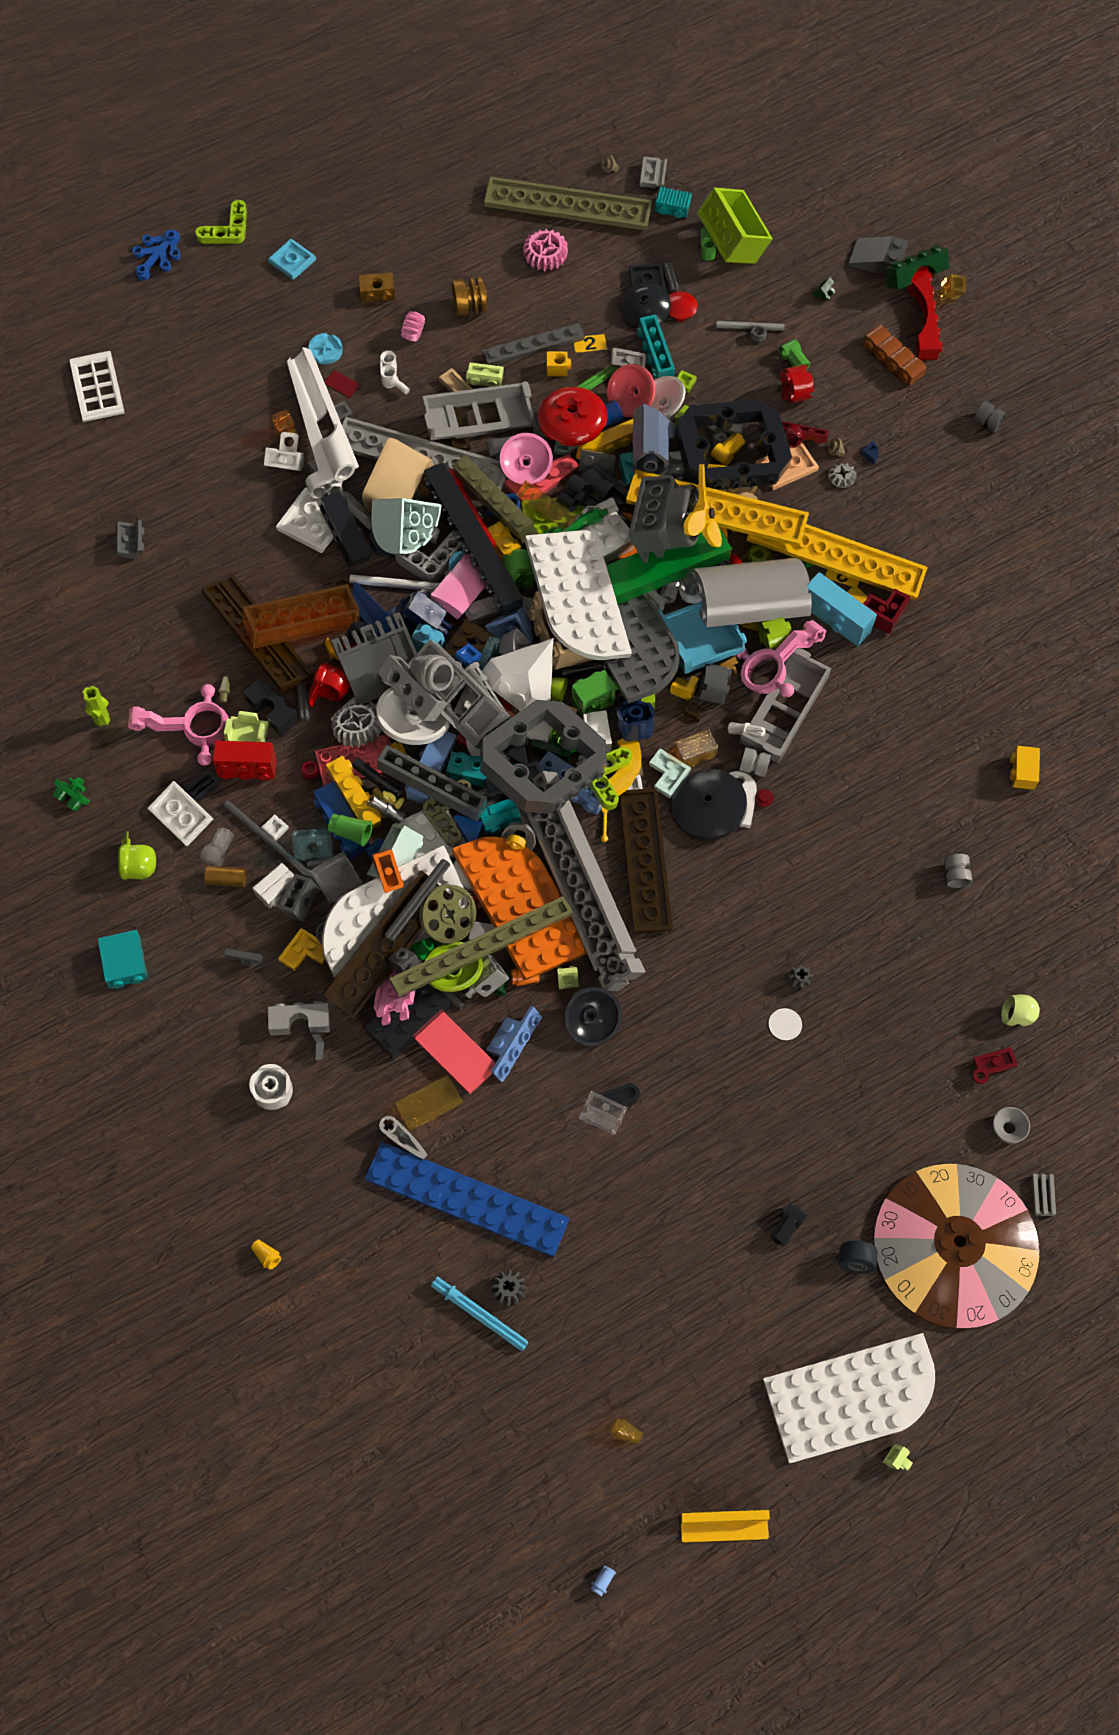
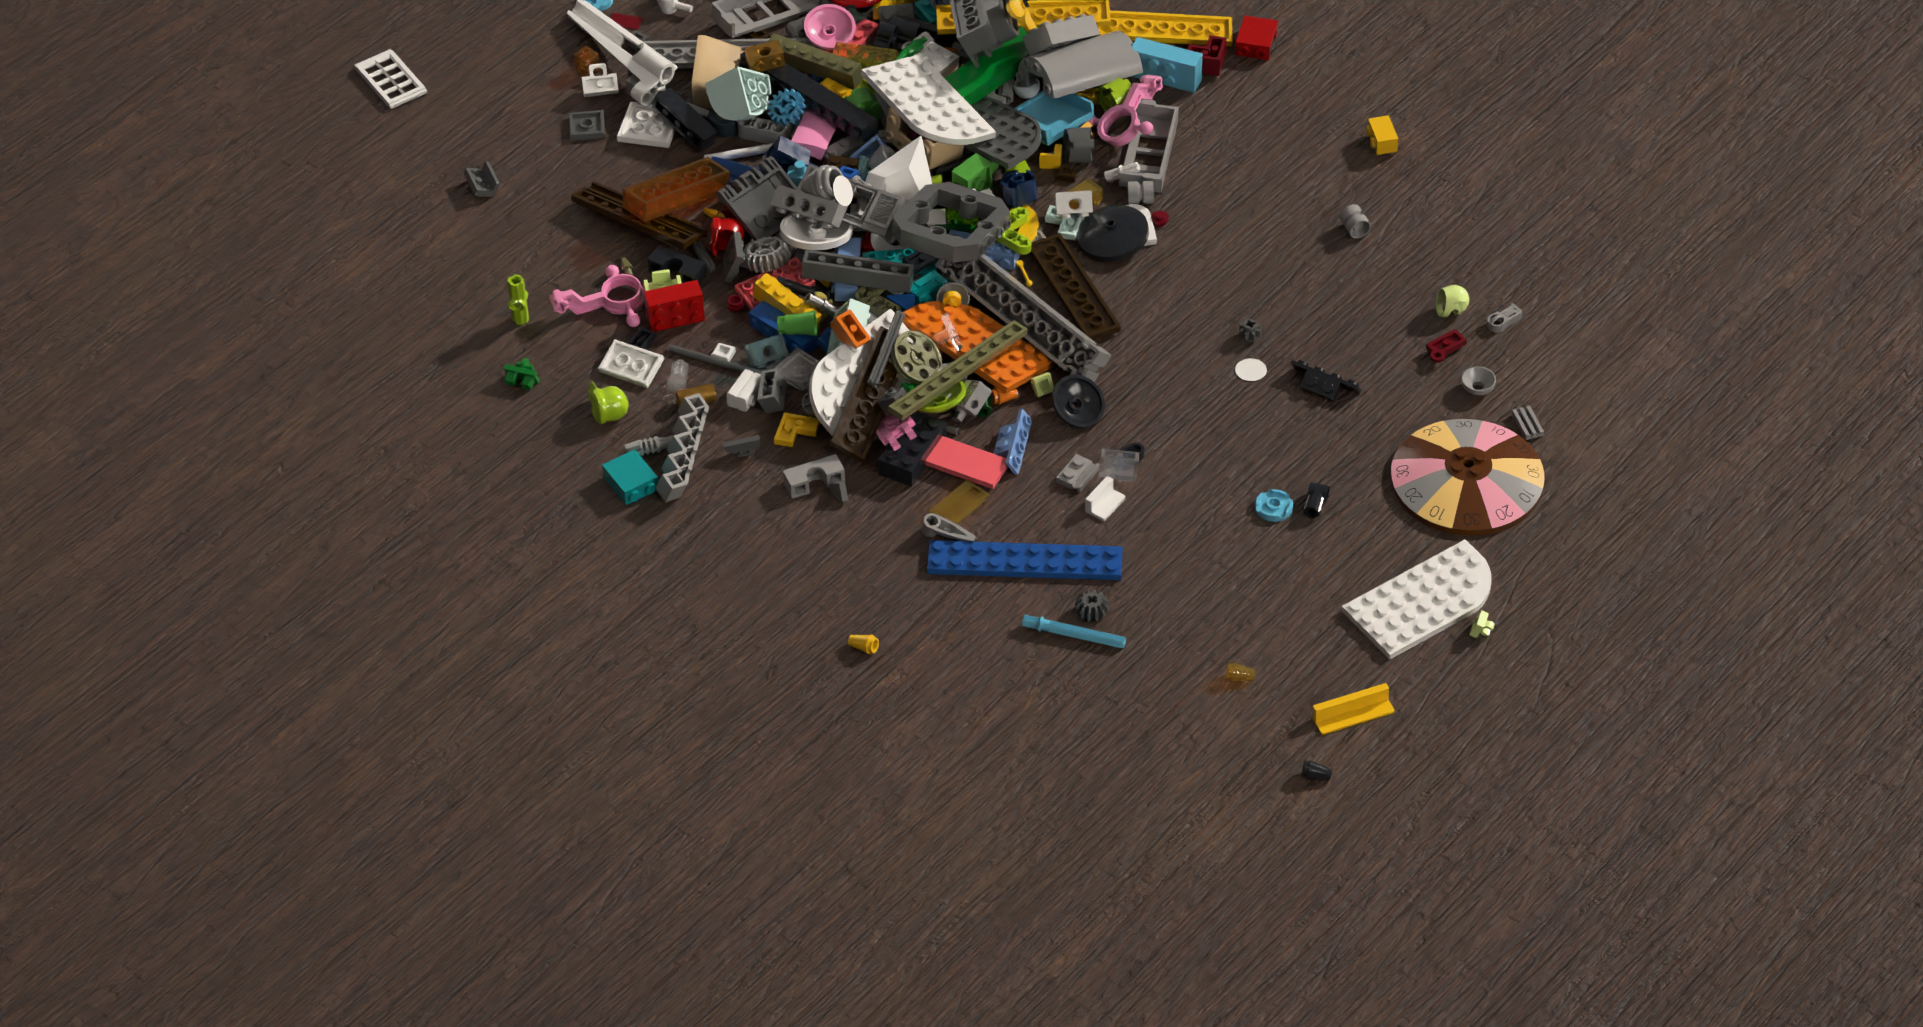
camera: 15 degrees left, 20 degrees down
(158, 924) = (649, 445): none -> light grey hinge
(186, 942) = (683, 447): none -> light grey brick
(256, 500) = (587, 125): none -> dark grey tile
(262, 1081) = (812, 526): white brick -> none
(324, 718) = (733, 257): none -> dark grey plate
(442, 484) = (765, 56): none -> pearl gold brick
(443, 549) = (786, 107): none -> dark azure gear
(447, 686) = (842, 190): none -> white sticker
(492, 894) = (948, 333): none -> clear tile
(561, 1102) = (1077, 473): none -> light grey plate
(574, 1149) = (1103, 500): none -> white panel
(602, 1581) = (1264, 778): light blue pin -> none
(655, 1596) = (1315, 771): none -> black cone
(690, 756) = (1062, 203): none -> white brick
(740, 551) = (1060, 33): none -> light grey brick
(743, 1214) = (1274, 505): none -> medium azure tile
(850, 1071) = (1321, 383): none -> black bracket
(858, 1257) = (1386, 501): black wheel -> none
(943, 599) = (1256, 37): none -> red panel
(1071, 1046) = (1506, 317): none -> light grey piece

